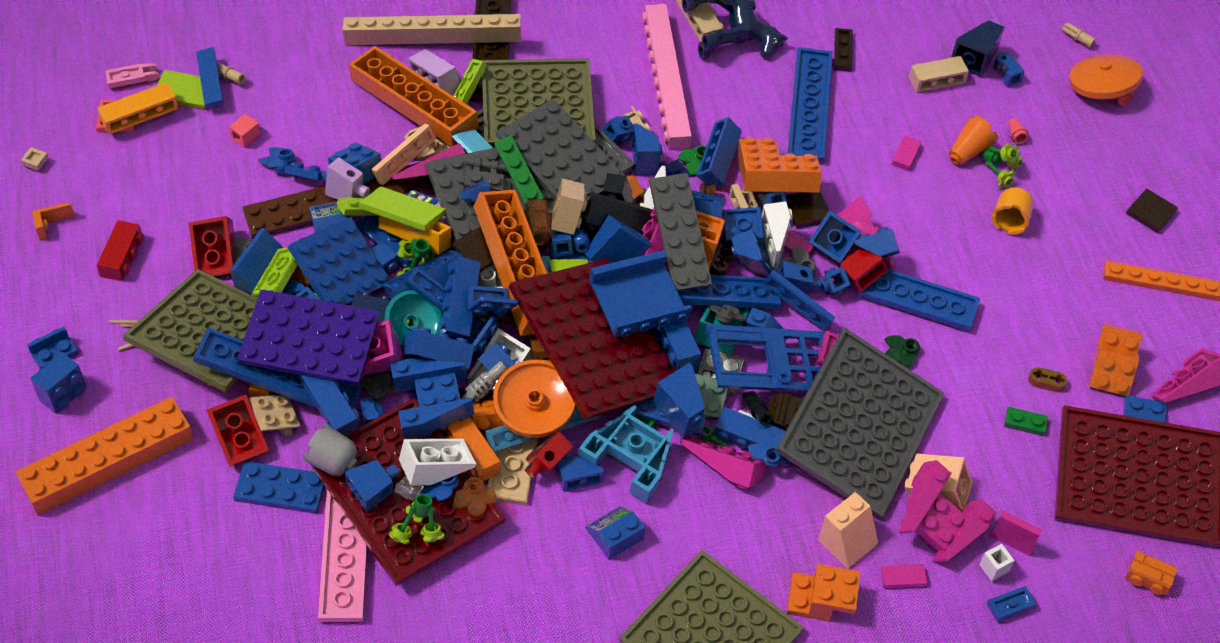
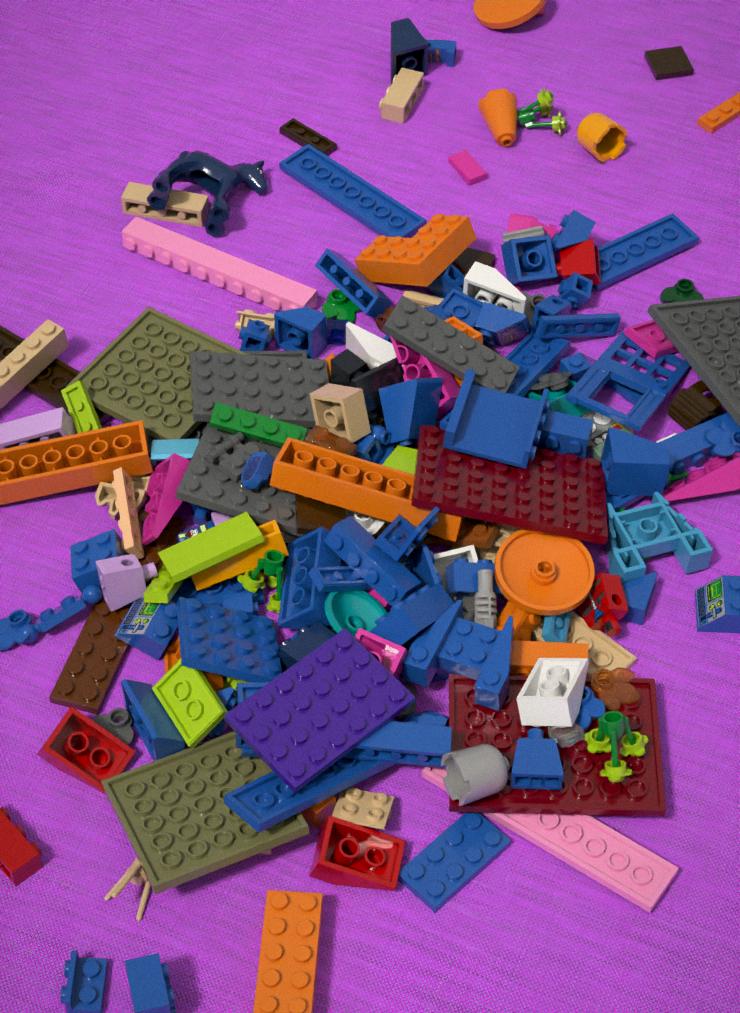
camera: 50 degrees left, 5 degrees down
(756, 407) = (671, 423): black hinge -> none
(850, 217) = (529, 232): none -> light grey axle
(1018, 132) = (516, 85): coral cone -> none

